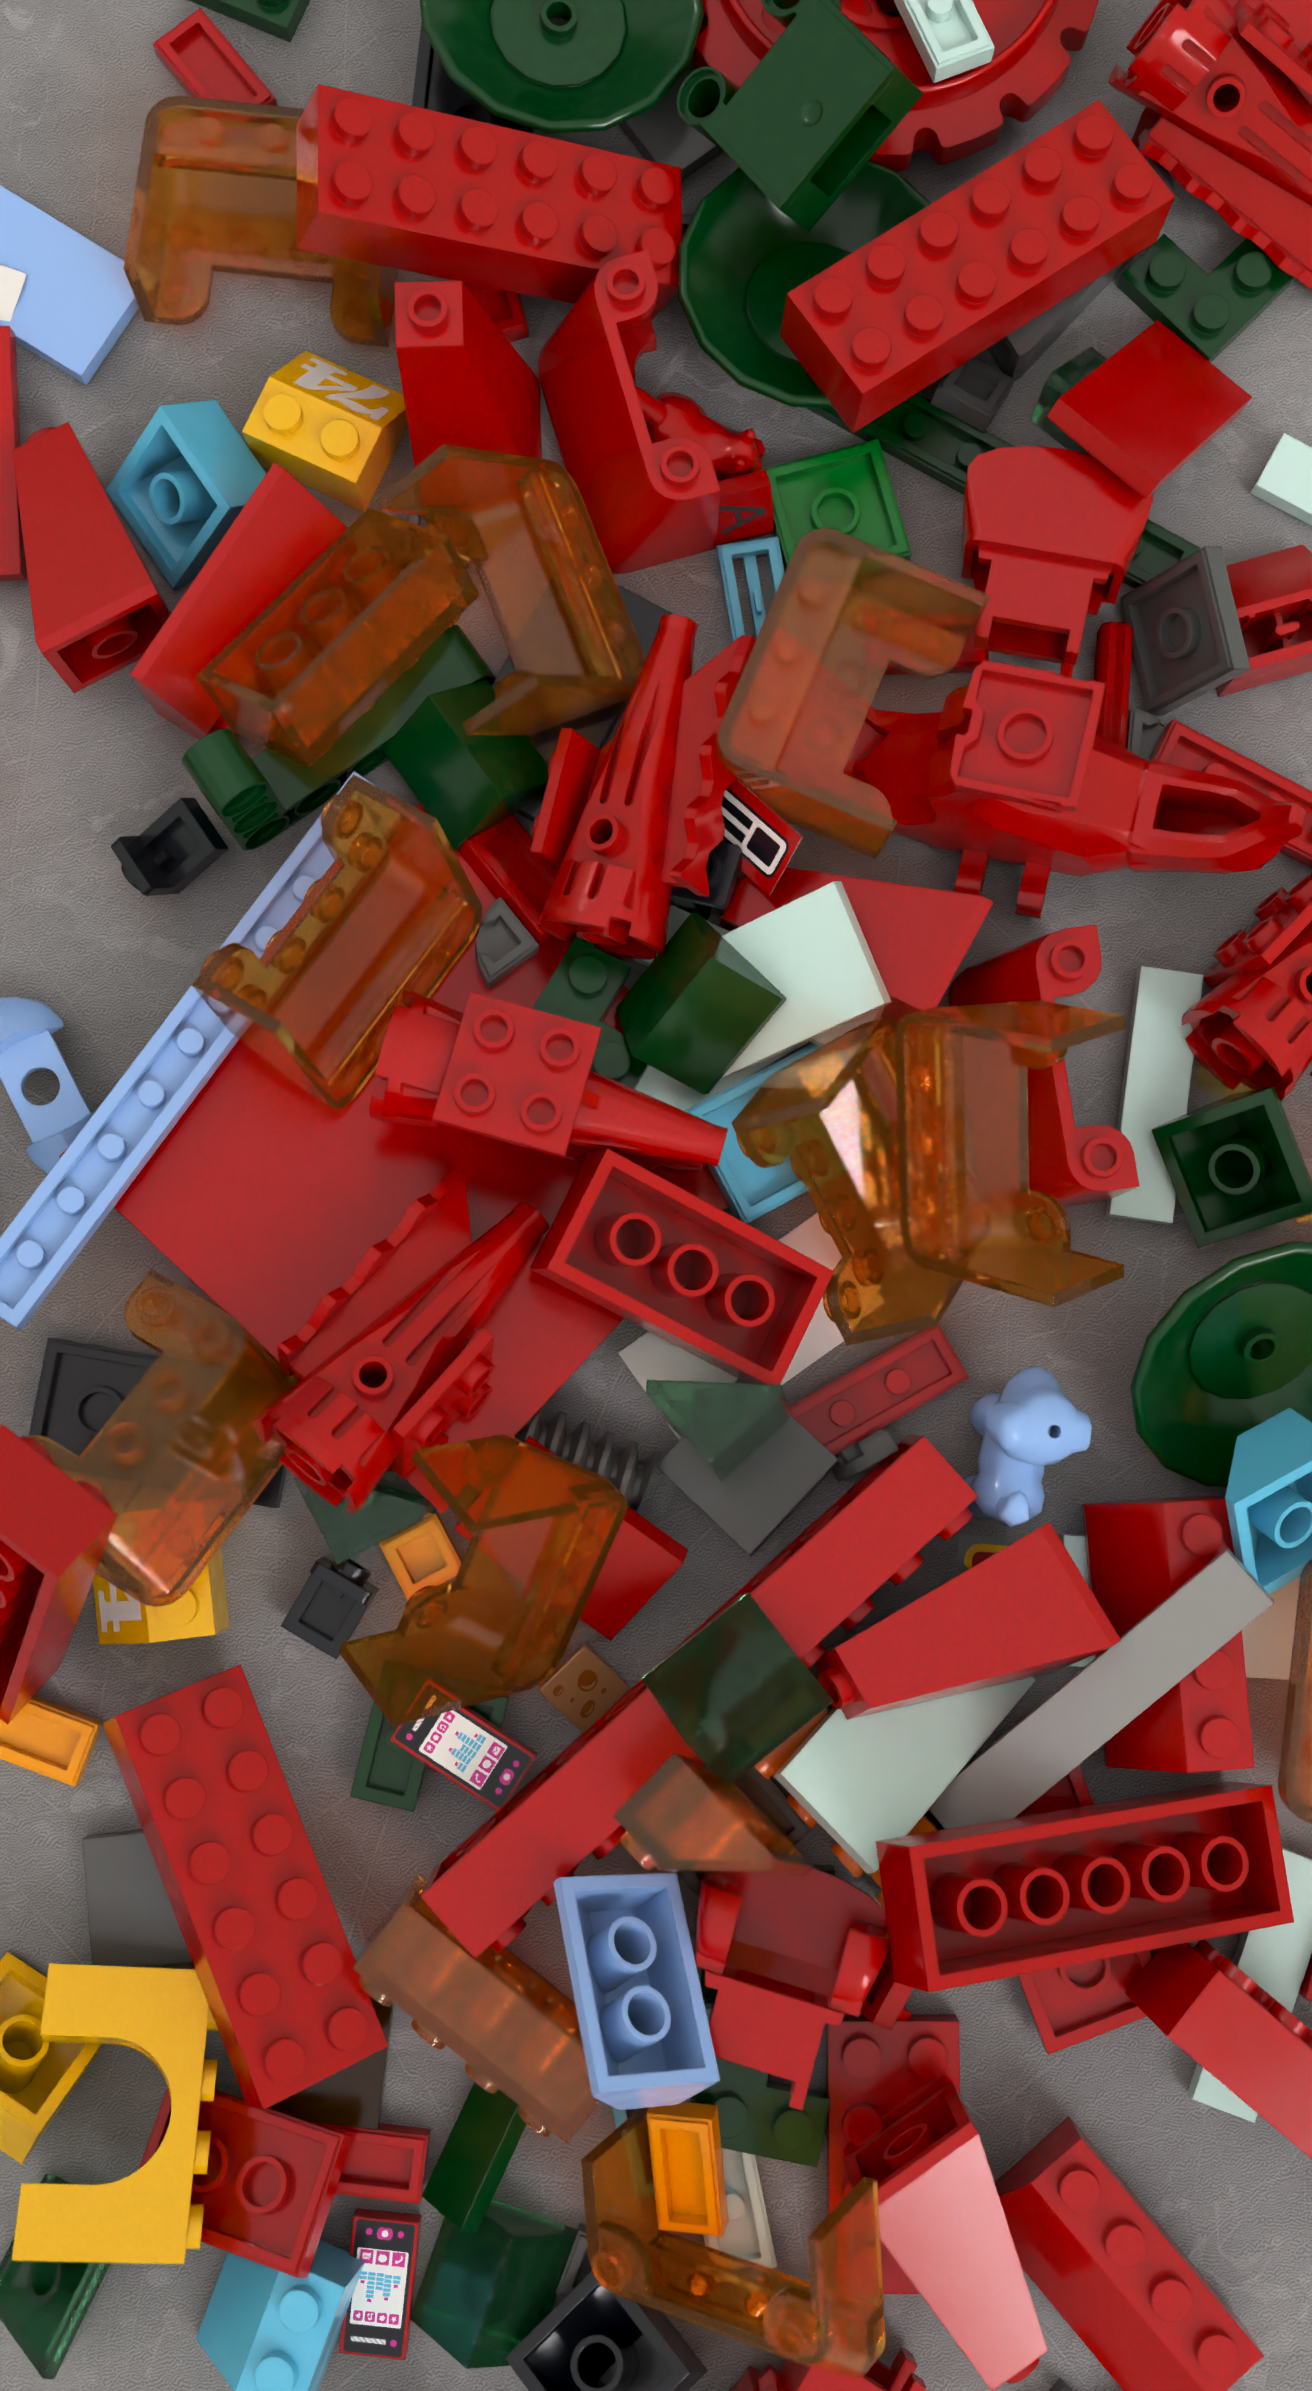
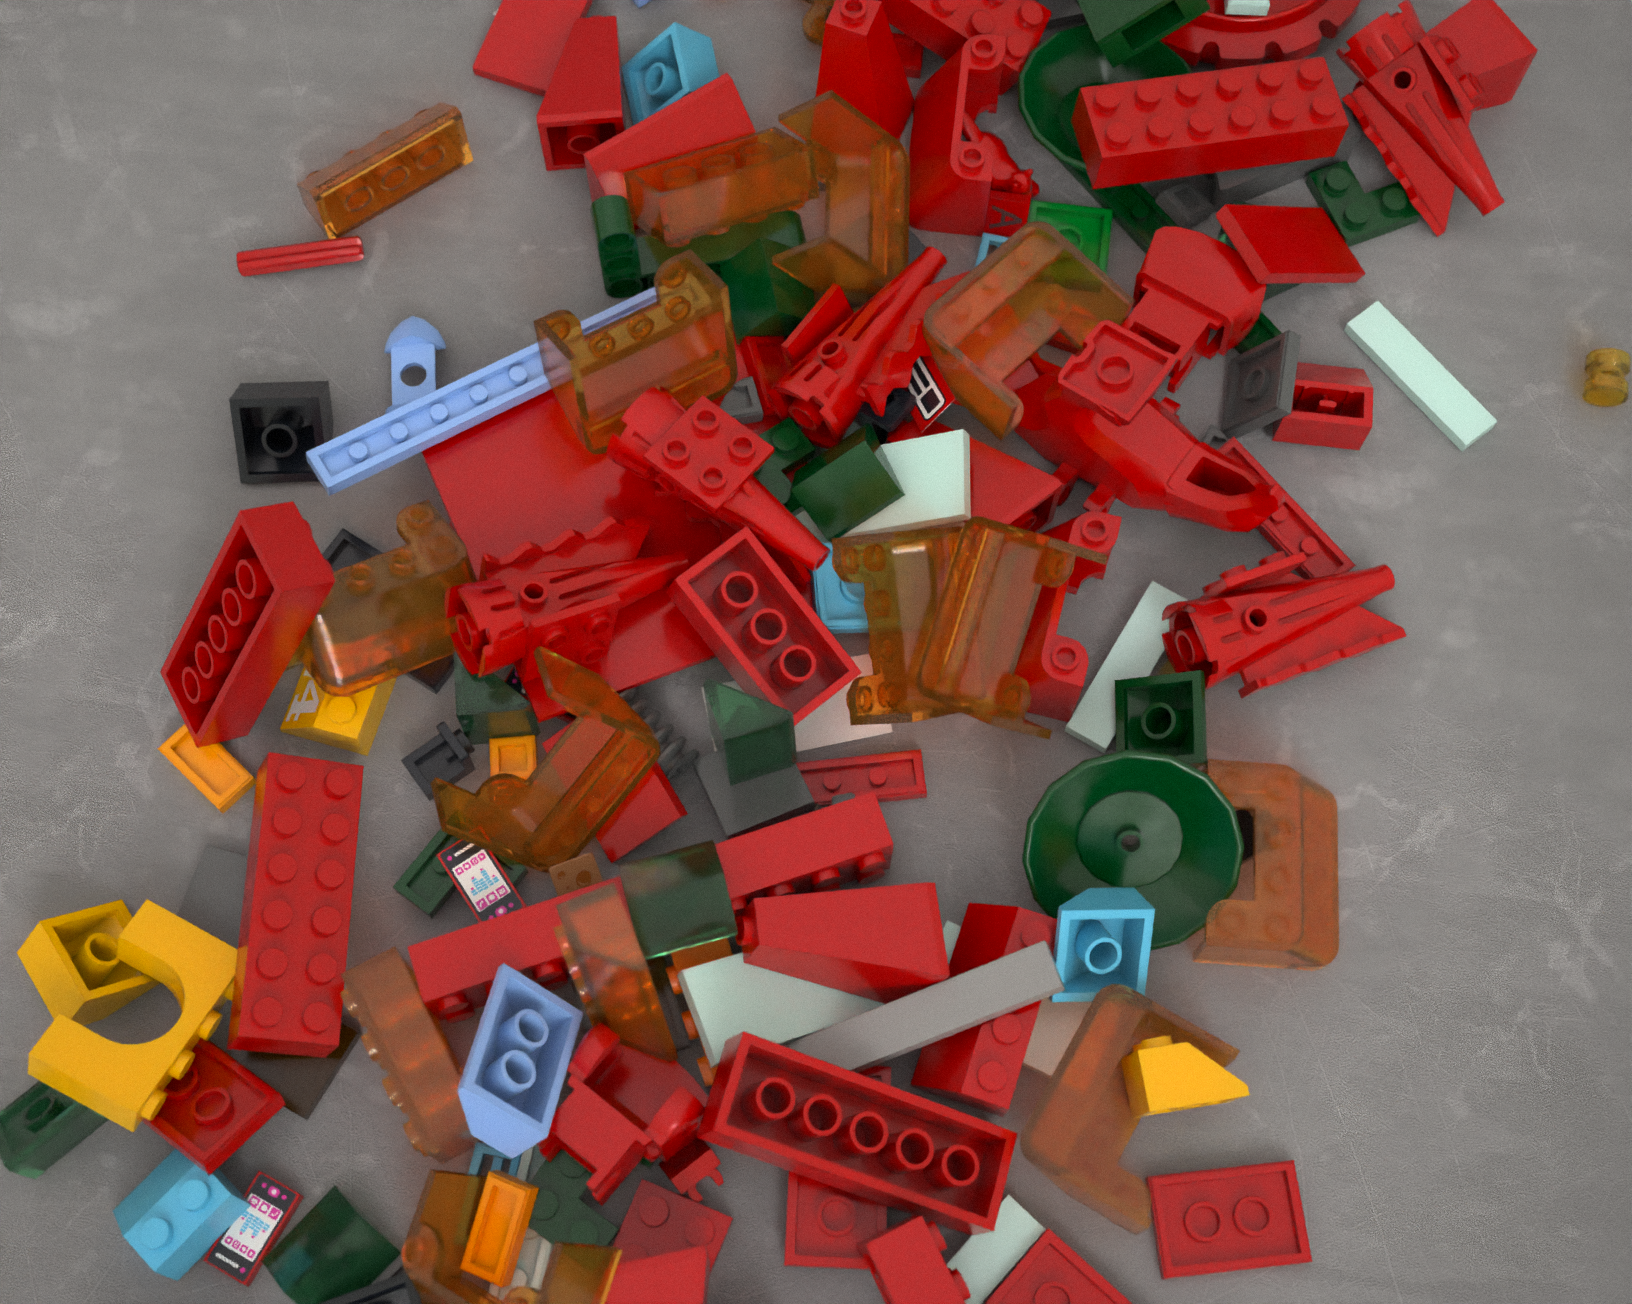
camera: 25 degrees right, 15 degrees down
(170, 850) = (561, 276): black bracket -> none
(327, 428) = (768, 76): yellow slope -> none
(384, 2162) = (293, 1144): red tile -> none
(475, 2158) = (362, 1161): dark green tile -> none
(1022, 1433) = (946, 829): light blue animal -> none
(1114, 668) = (1206, 401): red axle -> none

